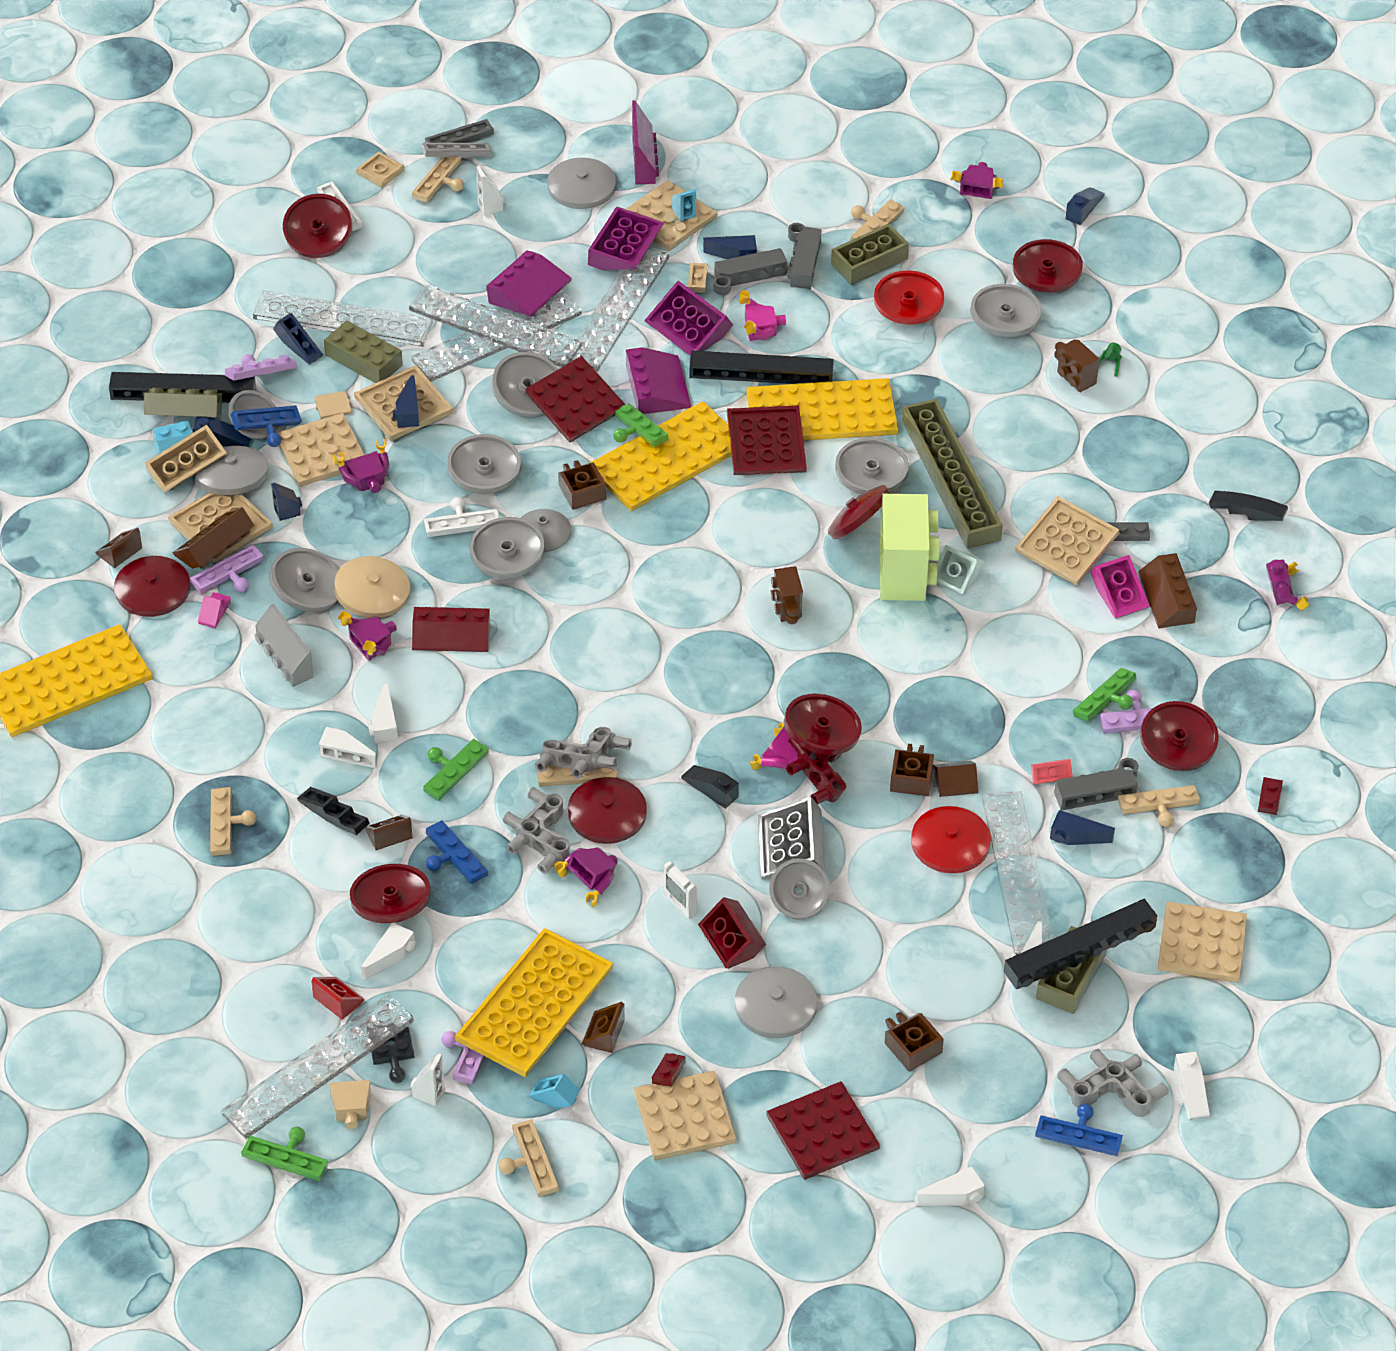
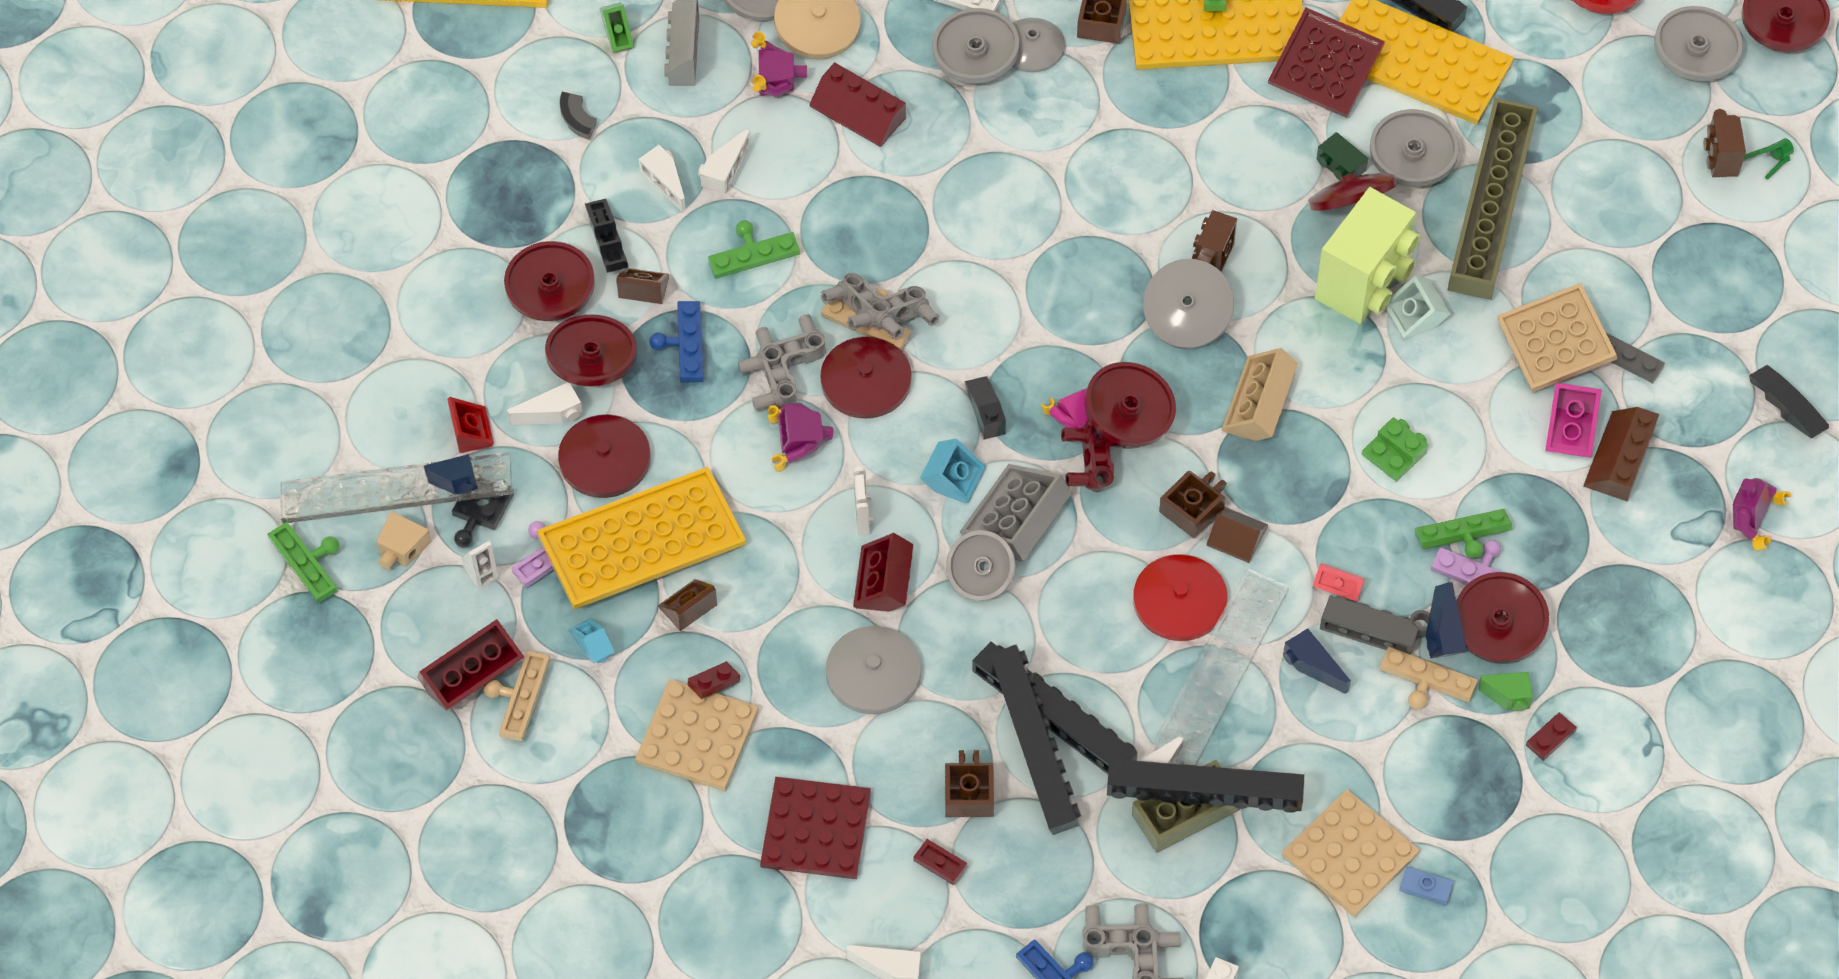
camera: 35 degrees right, 10 degrees up
(222, 663) = (616, 26): none -> bright green slope
(222, 821) = (499, 189): tan plate -> none
(234, 739) = (574, 115): none -> dark grey tile
(318, 862) = (549, 281): none -> dark red dish
(362, 1029) = (452, 475): none -> dark blue slope
(456, 963) = (604, 456): none -> dark red dish
(479, 1158) = (470, 665): none -> dark red slope
(723, 838) = (953, 470): none -> medium azure slope
(802, 658) = (1191, 324): none -> light grey dish
(826, 497) = (1341, 157): none -> dark green brick
(897, 678) = (1260, 395): none -> tan slope
(926, 958) = (1066, 718): none -> black brick
(931, 1102) = (940, 861): none -> dark red plate
(935, 981) = (1035, 740): none -> black brick
(1017, 666) = (1396, 448): none -> bright green plate
(1147, 757) = (1444, 626): none -> dark blue slope
(1220, 780) = (1508, 690): none -> bright green slope
(1269, 935) = (1426, 885): none -> medium blue plate

